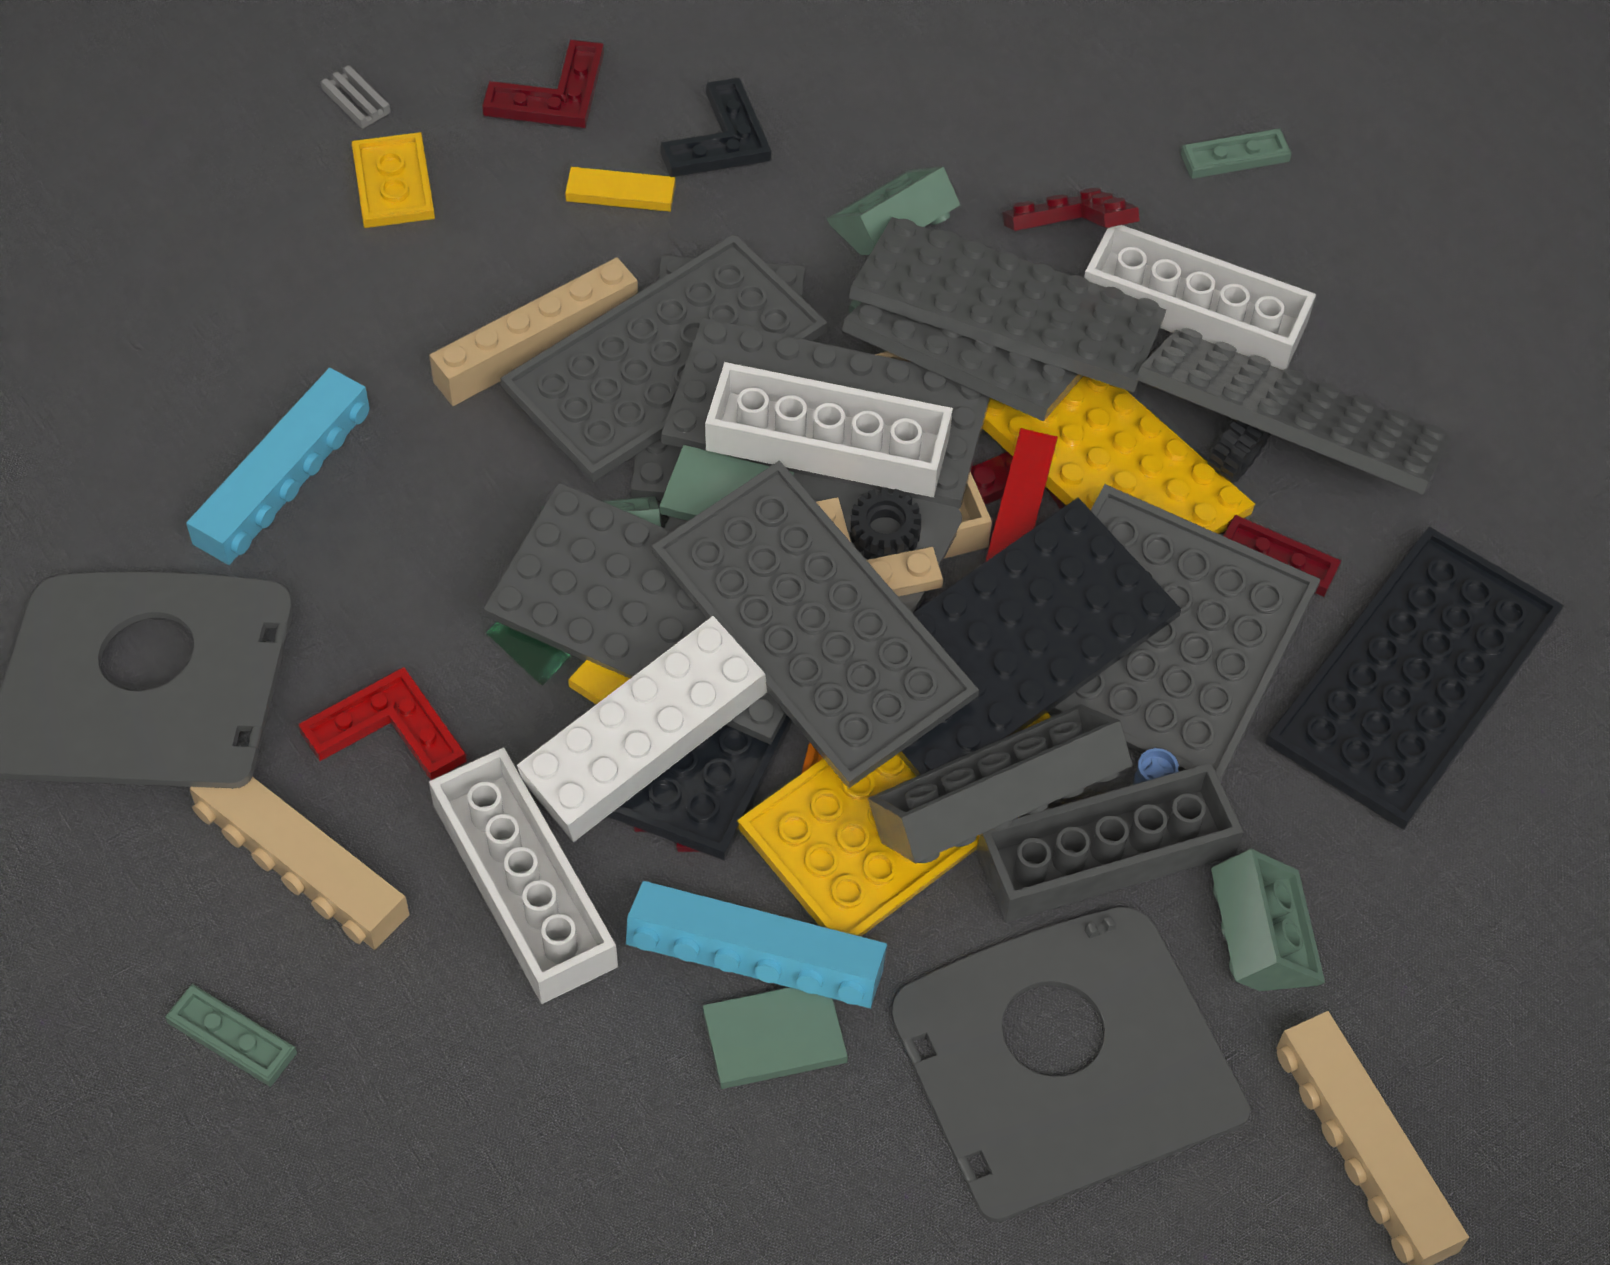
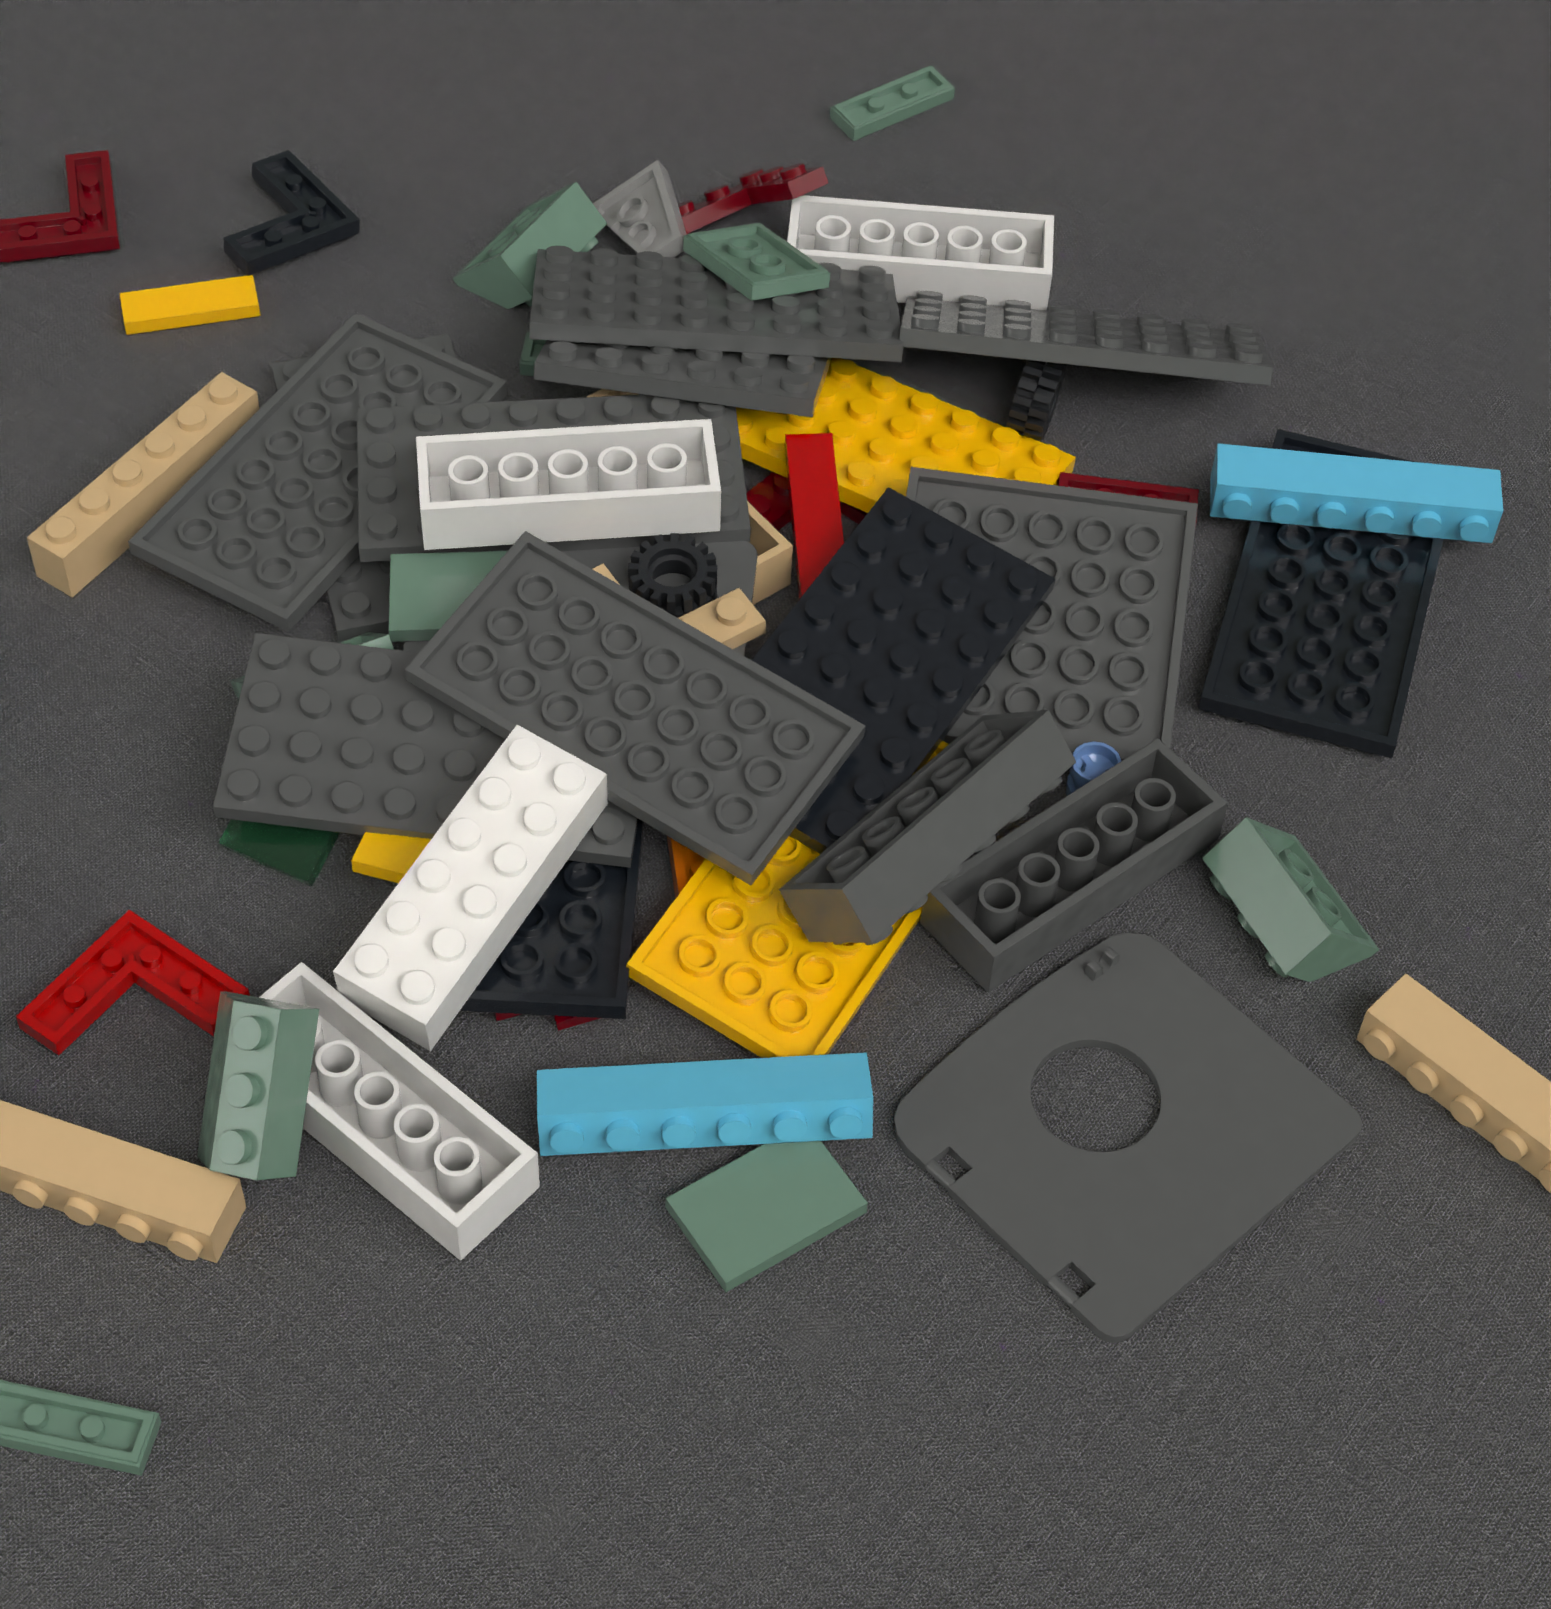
camera: 20 degrees left, 5 degrees down
(438, 834) = (257, 1087): none -> sand green slope
(991, 206) = (645, 213): none -> light grey wing
(1055, 274) = (756, 261): none -> sand green tile
(1464, 602) = (1355, 493): none -> medium azure brick

